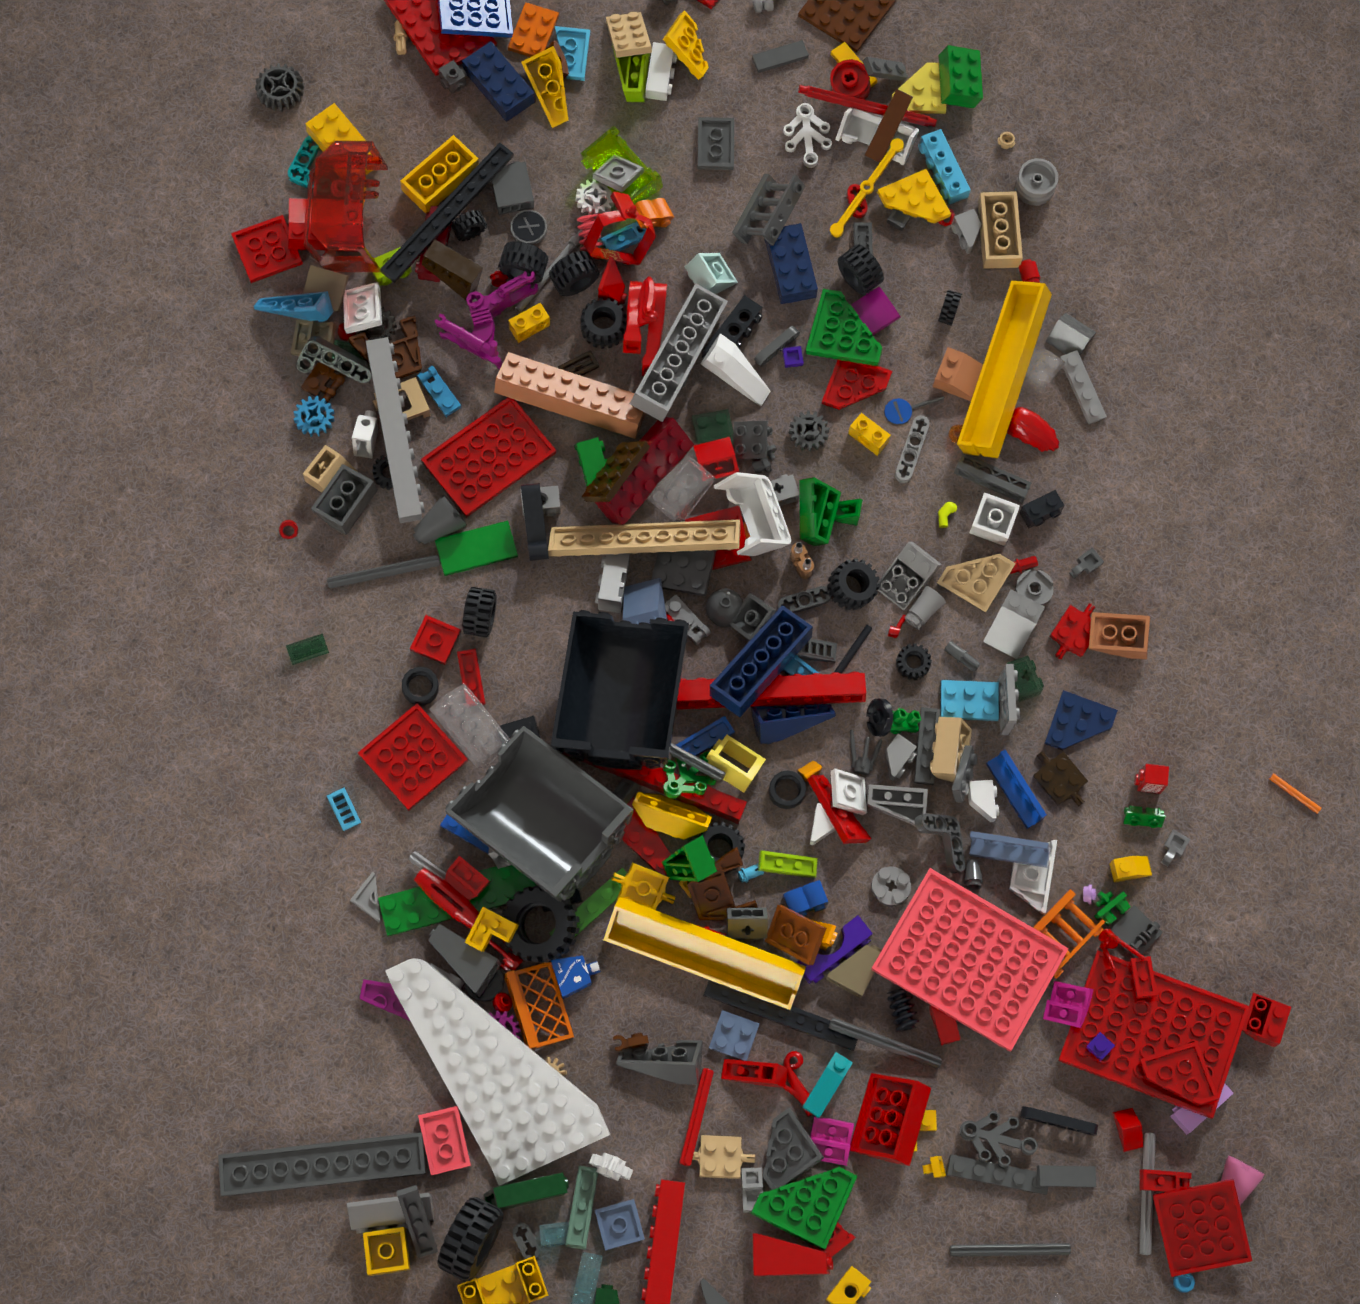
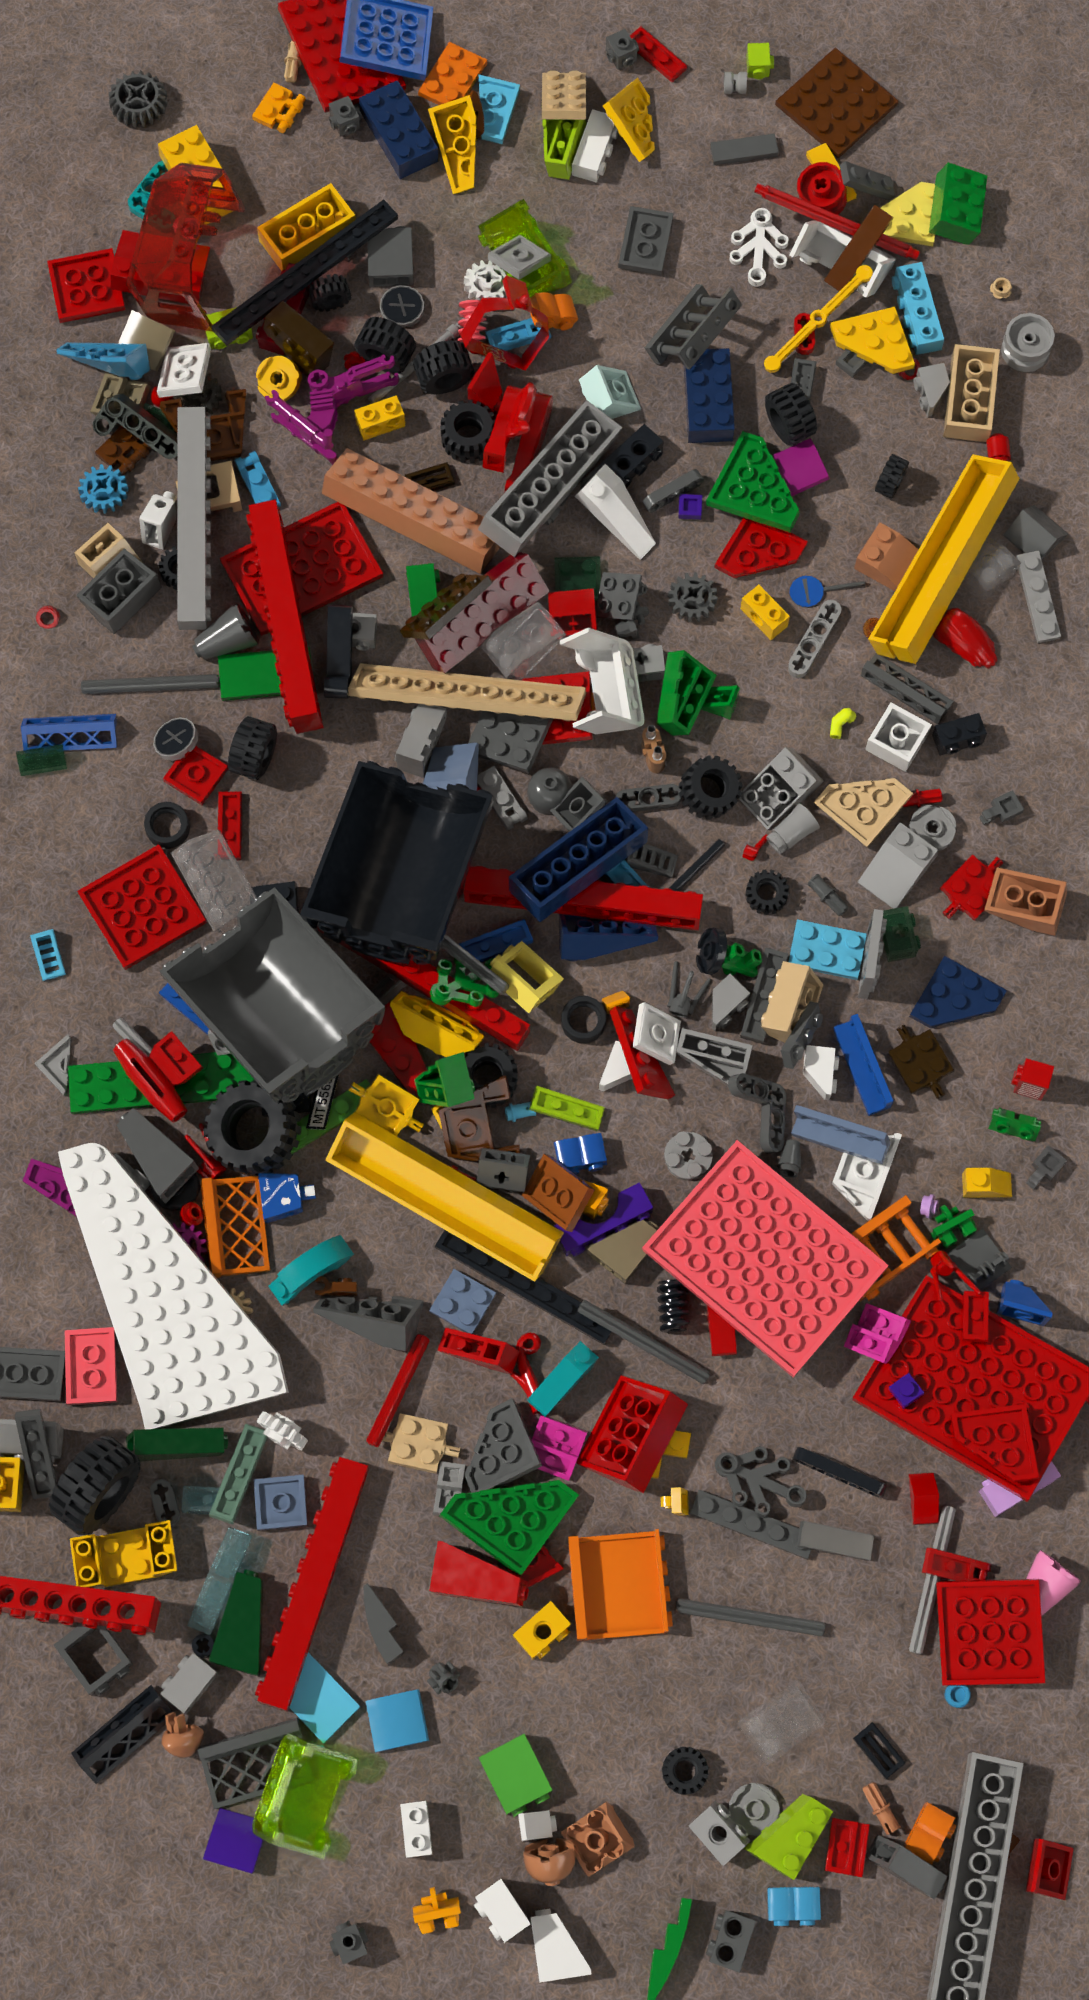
camera: 15 degrees right, 0 degrees up
(325, 615) = (69, 724): none -> blue fence
(391, 75) = (274, 103): none -> light orange plate
(414, 614) = (175, 738): none -> tile
(449, 297) = (290, 375): none -> yellow plate
(487, 504) = (284, 617): none -> red brick
(489, 924) = (187, 1117): yellow plate -> none
(590, 897) = (321, 1105): none -> sticker
(607, 1030) = (310, 1266): none -> teal arch
(902, 1242) = (619, 1585): none -> orange panel
(1177, 960) = (1022, 1304): none -> blue slope

